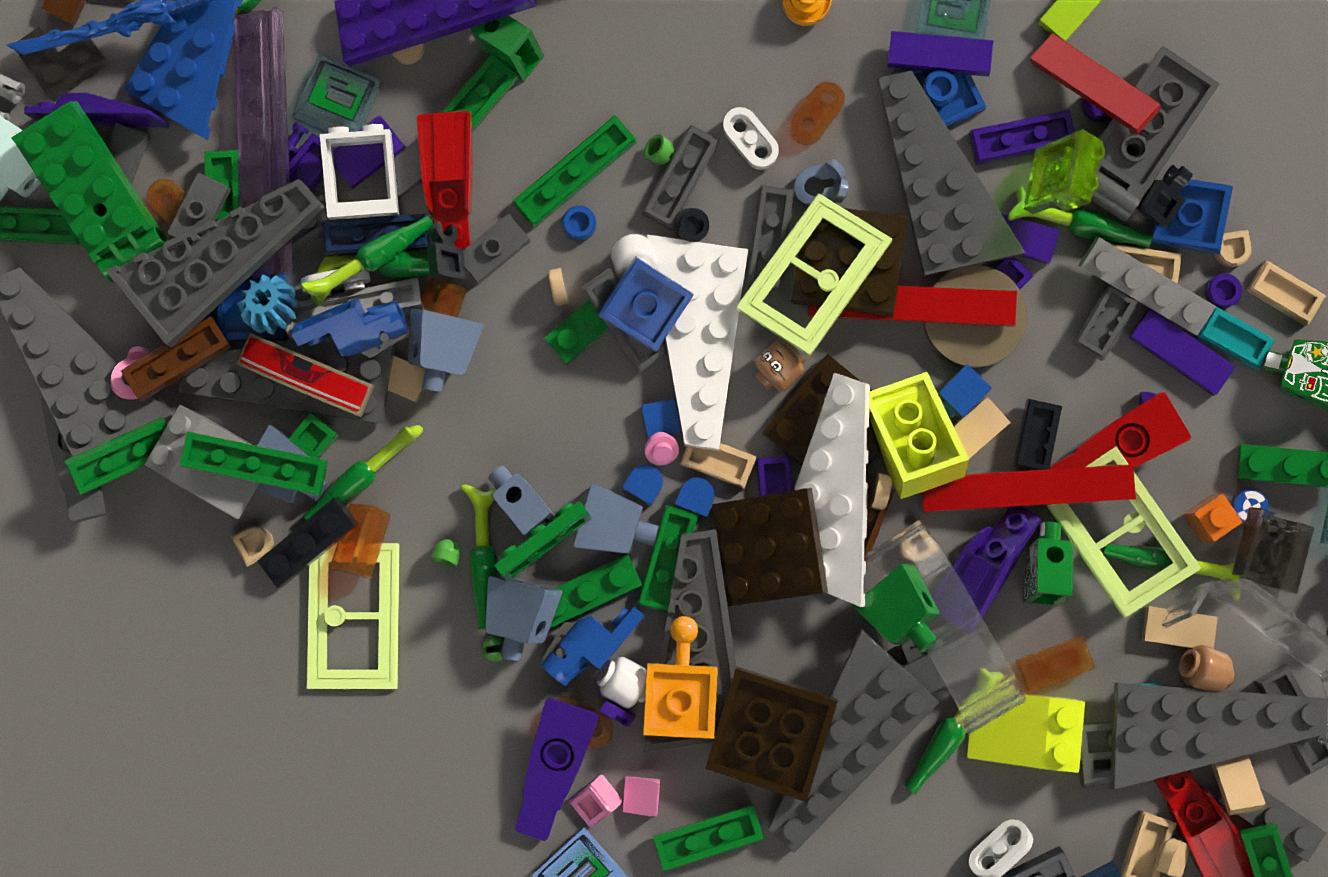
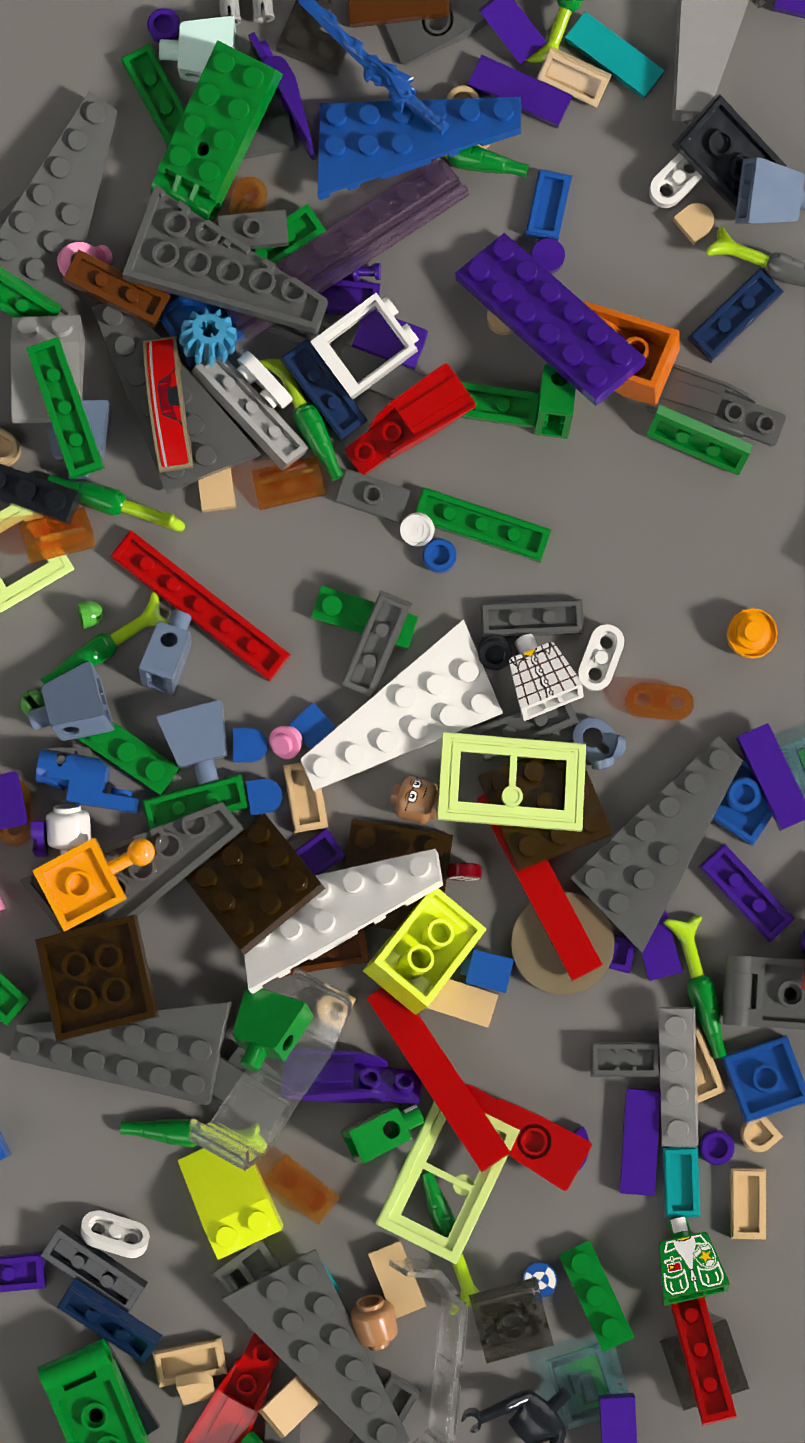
camera: 55 degrees right, 0 degrees up
(313, 436) = (120, 443): green tile -> none
(336, 96) = (422, 285): tile -> none
(354, 329) = (230, 421): blue plate -> none
(368, 258) = (298, 397): green piece -> none
(441, 345) = (261, 502): sand blue torso -> none
(445, 259) = (336, 460): black plate -> none
(499, 450) = (202, 605): none -> red tile
(542, 540) = (144, 686): green plate -> none
(545, 227) = (417, 529): none -> white piece
(558, 286) = (372, 570): tan tile -> none
(629, 247) = (433, 621): white head -> none
(645, 304) = (399, 653): blue tile -> none
(658, 149) = (543, 585): bright green hinge -> none
(738, 196) = (542, 678): none -> white torso
(865, 362) = (464, 872): none -> dark red tile
(881, 491) = (359, 950): tan tile -> none
(1037, 435) = (490, 1058): black plate -> none
(1064, 173) = (729, 945): clear neon green plate -> none
(1163, 198) = (759, 1046): black plate -> none
(1212, 518) = (508, 1251): orange brick -> none

